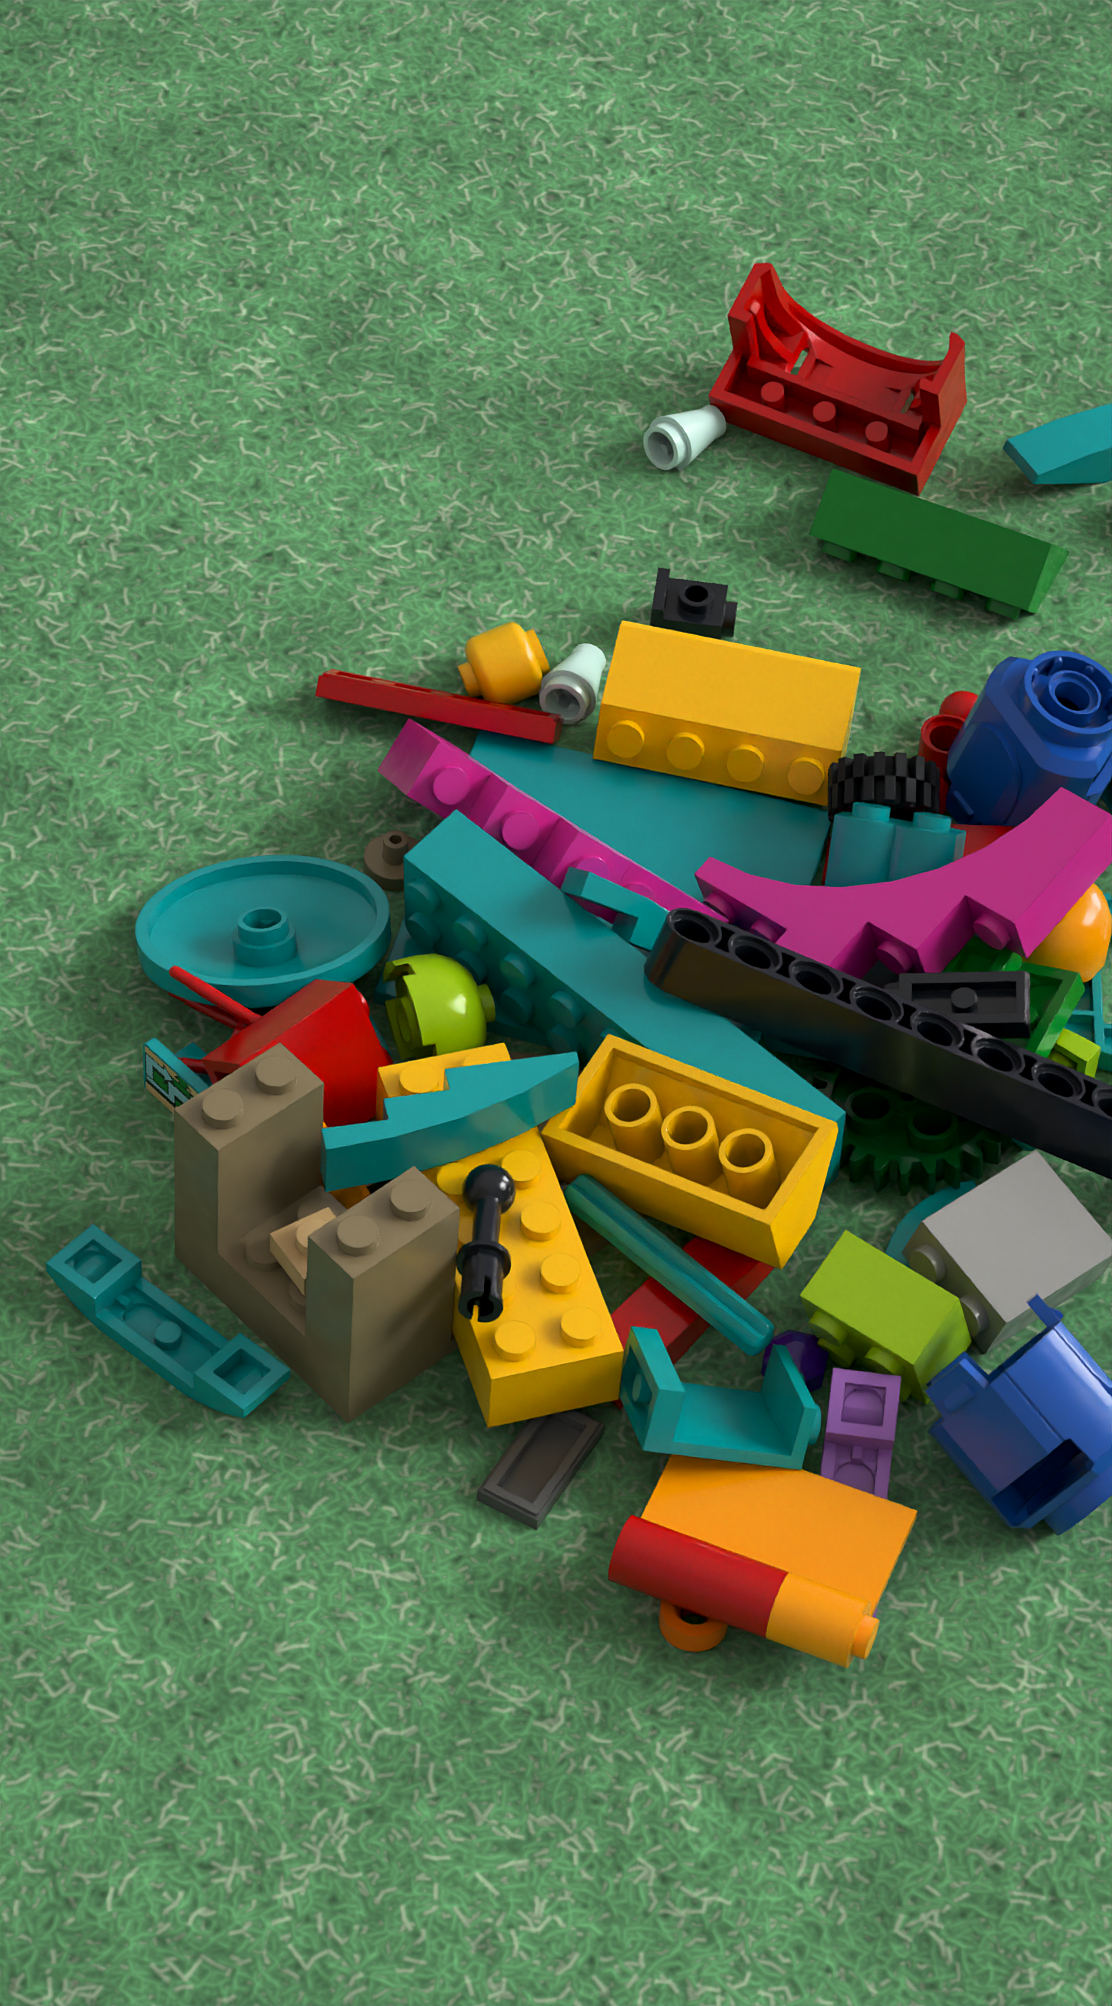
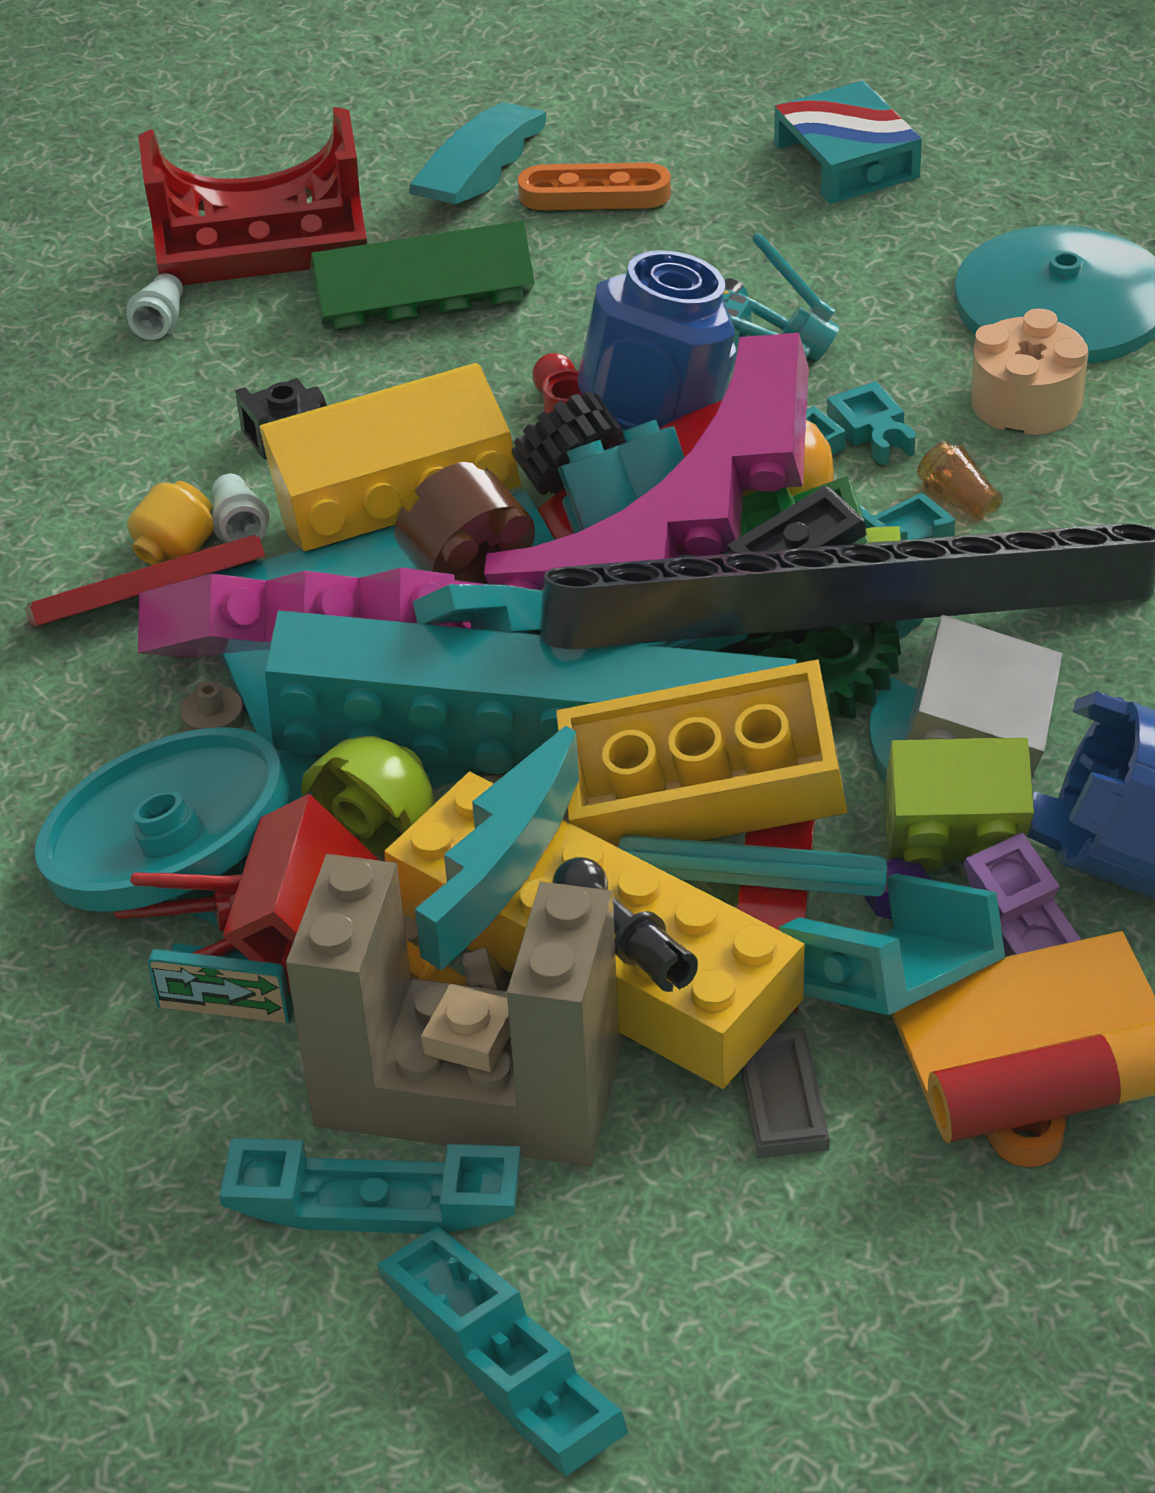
camera: 30 degrees left, 5 degrees down
(151, 1510) = (503, 1349): none -> teal slope
(716, 813) = (461, 520): none -> reddish brown brick

